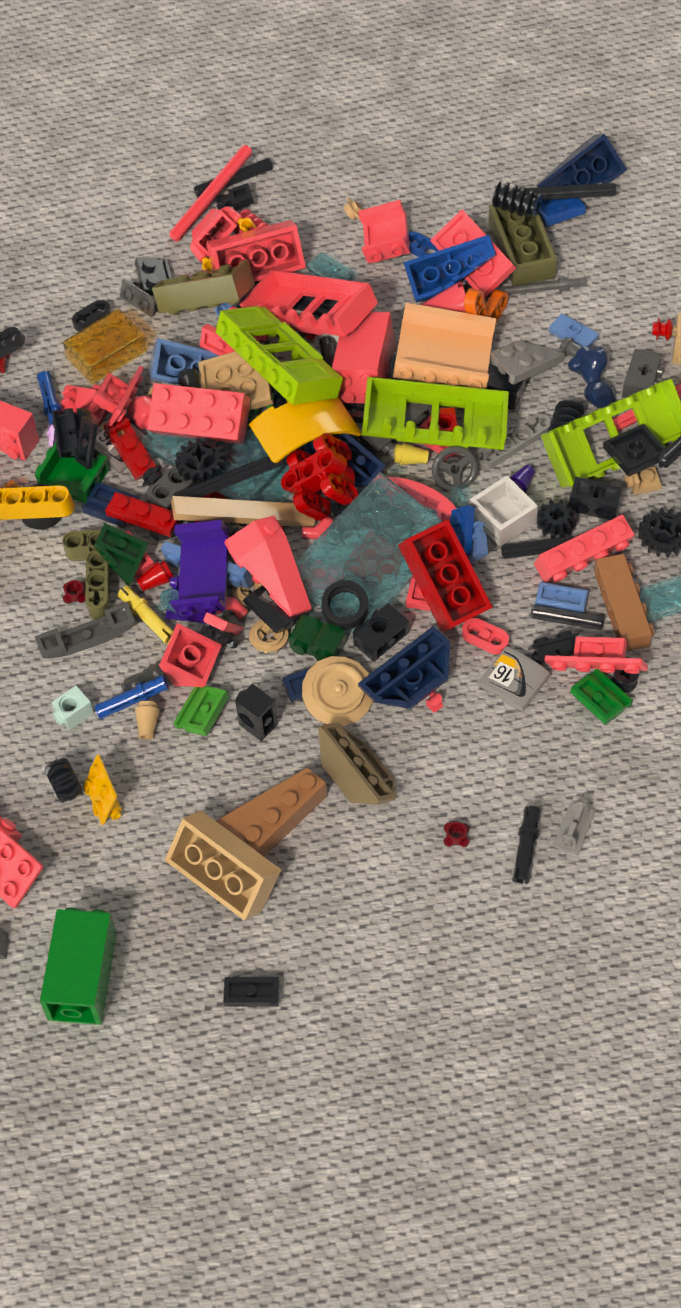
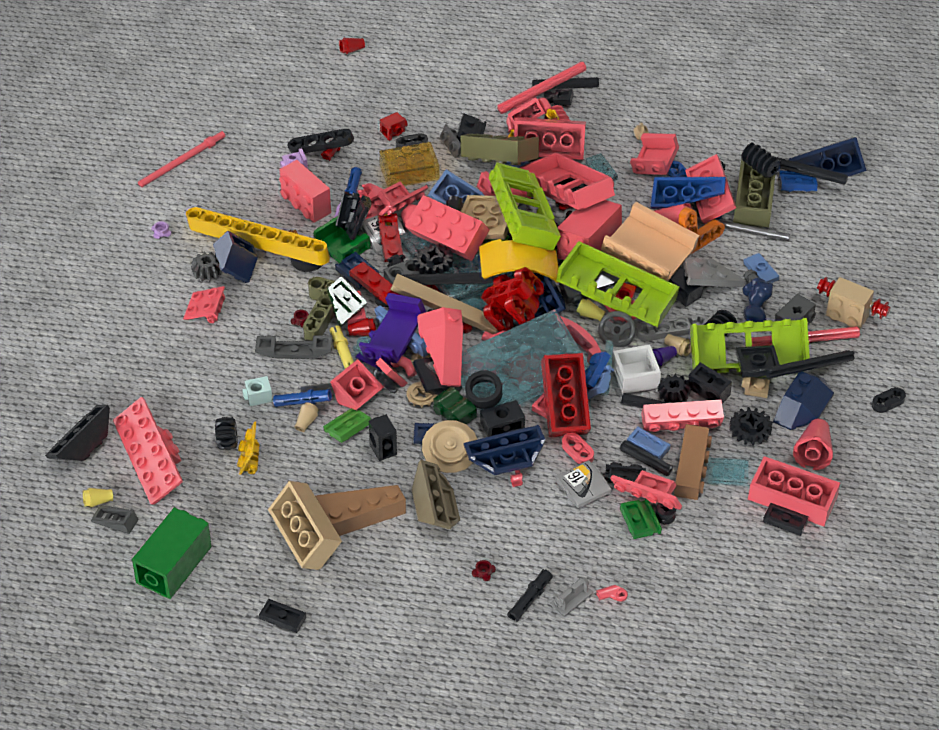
camera: 20 degrees right, 10 degrees down
(58, 302) = (393, 125): none -> red brick
(536, 459) = (681, 344): none -> tan cone
(618, 801) = (614, 592): none -> coral arm

